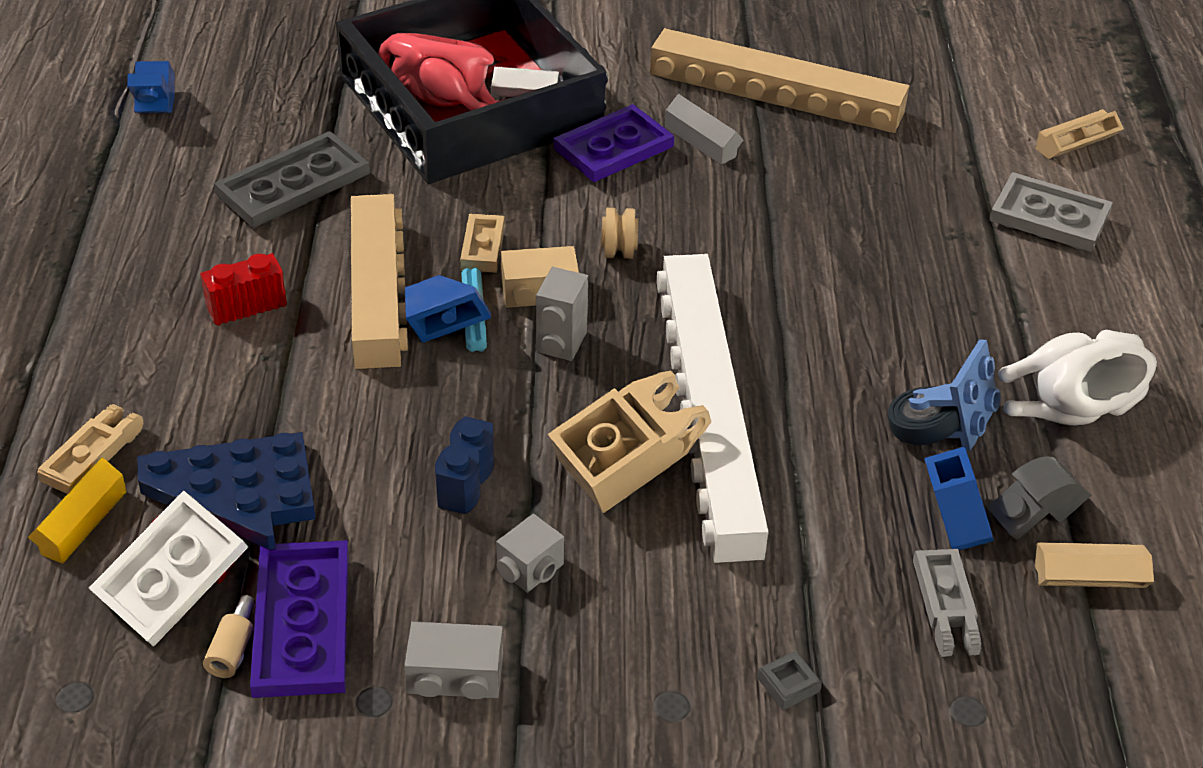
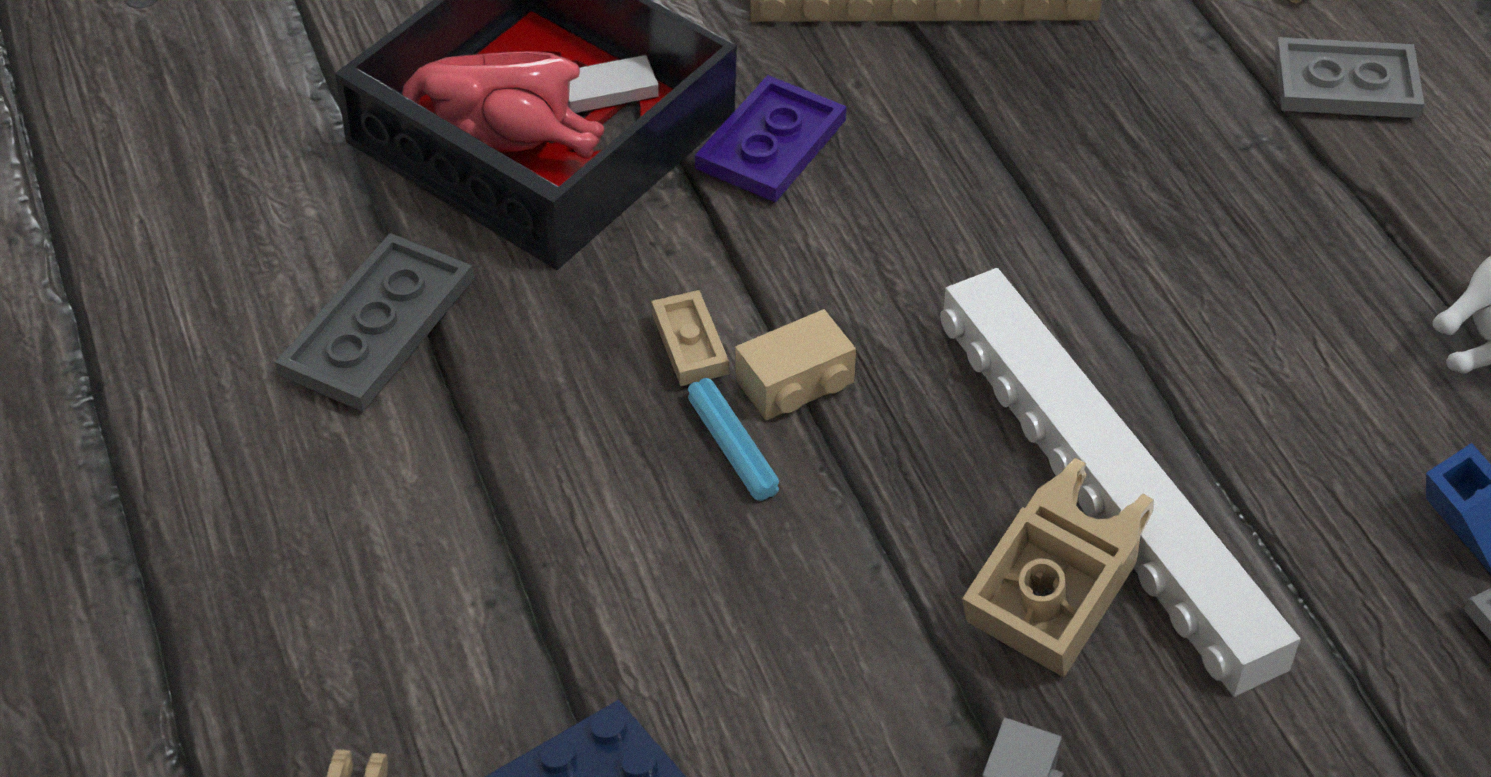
camera: 20 degrees left, 5 degrees up
(152, 87) = (99, 239): blue brick -> none
(243, 288) = (414, 511): red brick -> none
(375, 282) = (586, 441): tan brick -> none
(442, 307) = (705, 451): blue slope -> none
(464, 465) = (865, 674): dark blue brick -> none
(561, 313) = (868, 413): light grey brick -> none
(619, 233) = (863, 269): tan wheel -> none
(702, 130) = (872, 86): light grey piece -> none
(952, 409) = (1387, 403): medium blue plate -> none

